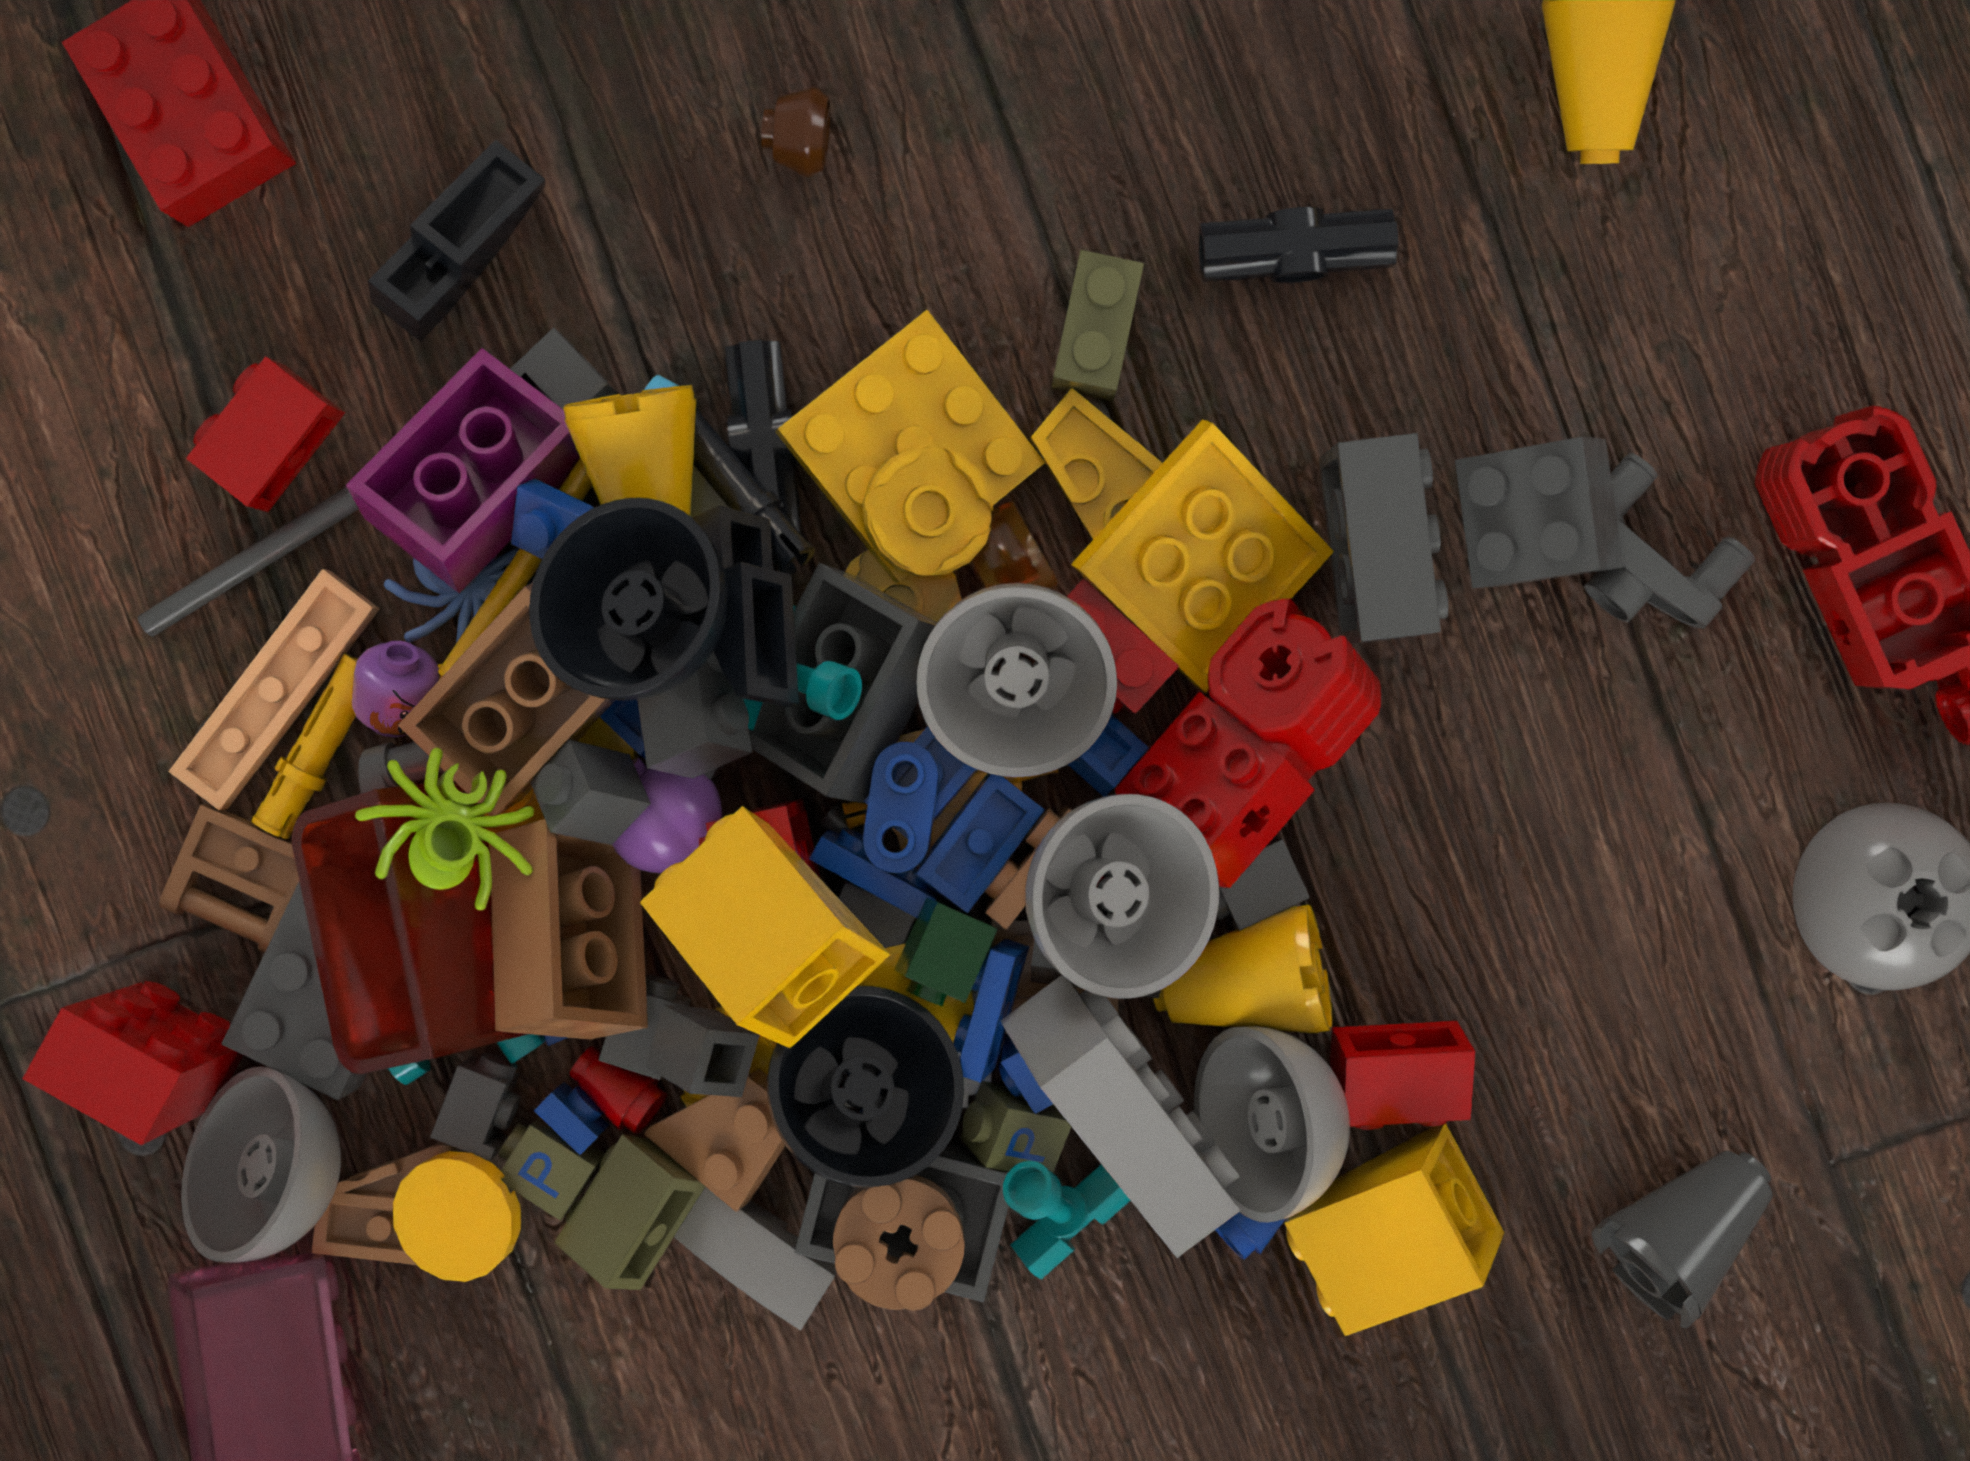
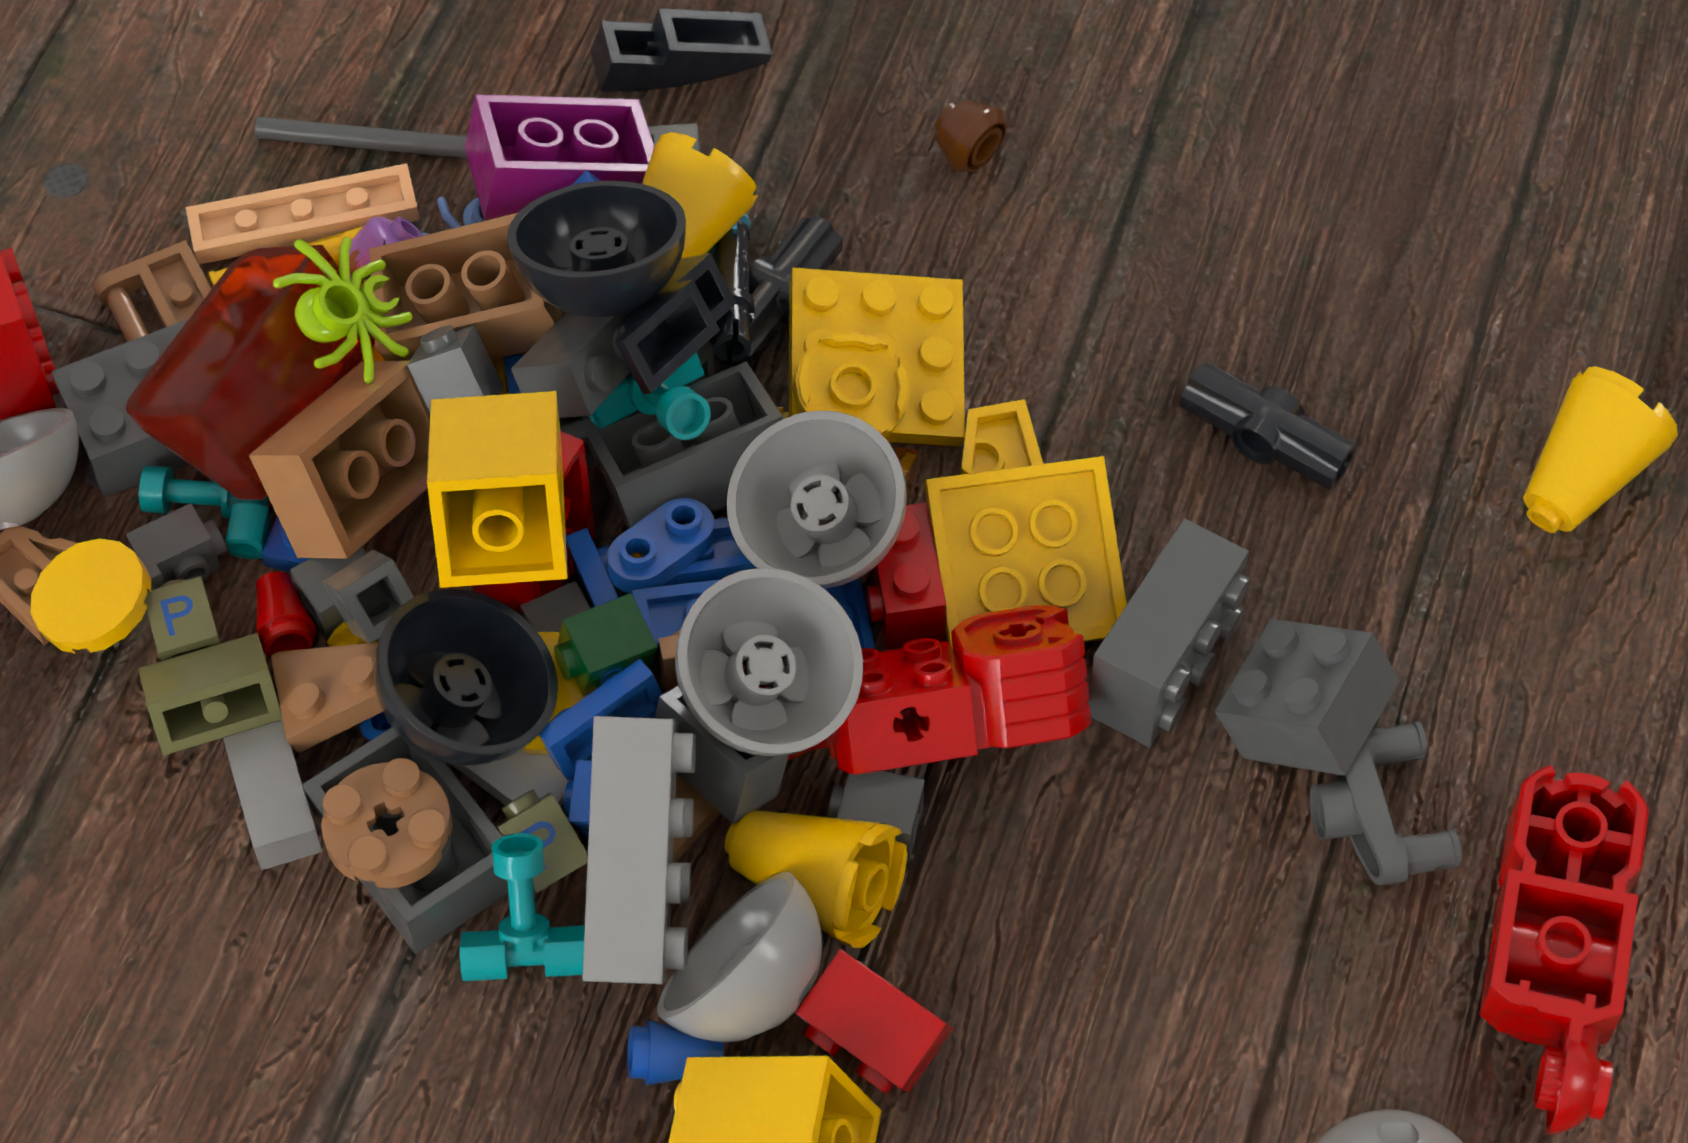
camera: 40 degrees right, 30 degrees down
(264, 434) = (448, 64): red brick -> none
(572, 1116) = (233, 604): blue plate -> none
(1097, 325) = (1077, 374): olive brick -> none

